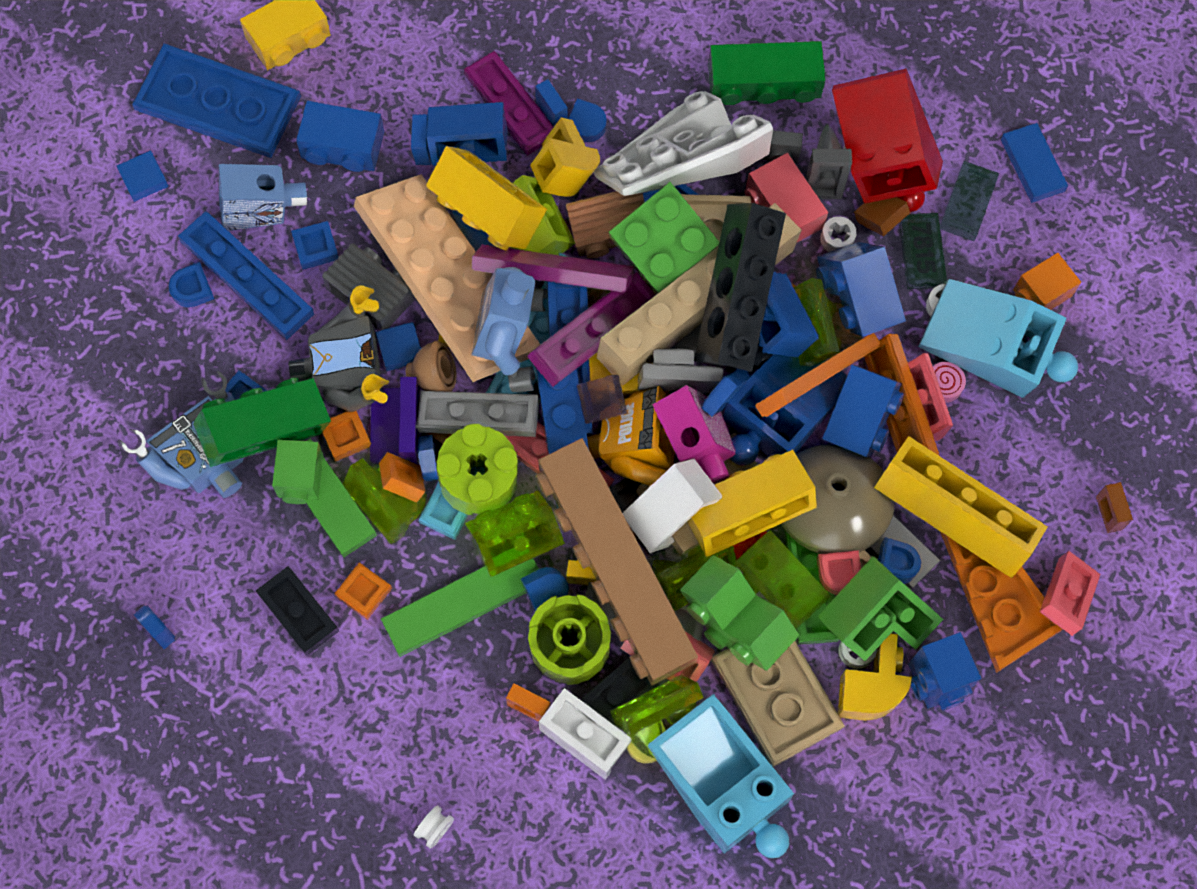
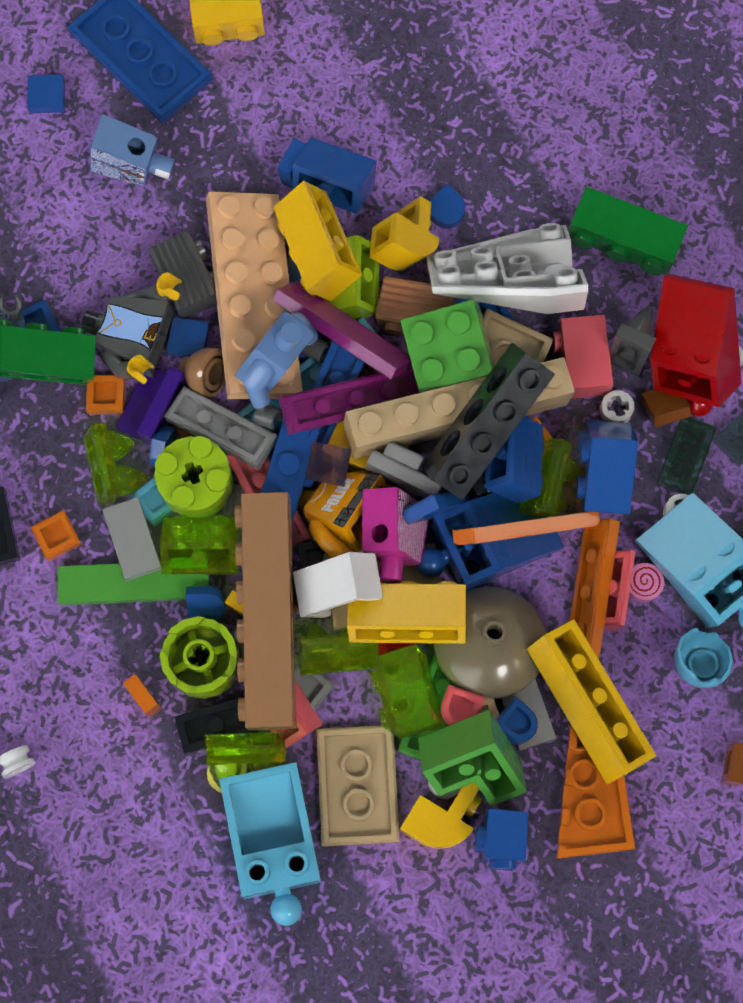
camera: 30 degrees right, 5 degrees up
(190, 286) = (40, 208): blue tile -> none
(246, 275) = (89, 219): blue plate -> none
(297, 471) = (46, 409): bright green brick -> none
(315, 245) = (160, 217): blue tile -> none
(340, 136) = (224, 131): blue brick -> none
(340, 514) = (64, 442): bright green tile -> none
(402, 477) = (130, 453): orange tile -> none
(443, 558) = (132, 539): none -> light grey tile
(523, 116) = (392, 170): magenta tile -> none
(550, 102) = (421, 177): blue tile -> none
(584, 733) = (173, 743): white panel -> none
(736, 615) = (349, 705): bright green brick -> none
(783, 143) = (604, 303): dark grey plate -> none
(863, 411) = (552, 577): blue brick -> none
(1035, 425) = (703, 659): none -> medium azure hair
(1070, 593) = (653, 821): coral plate -> none

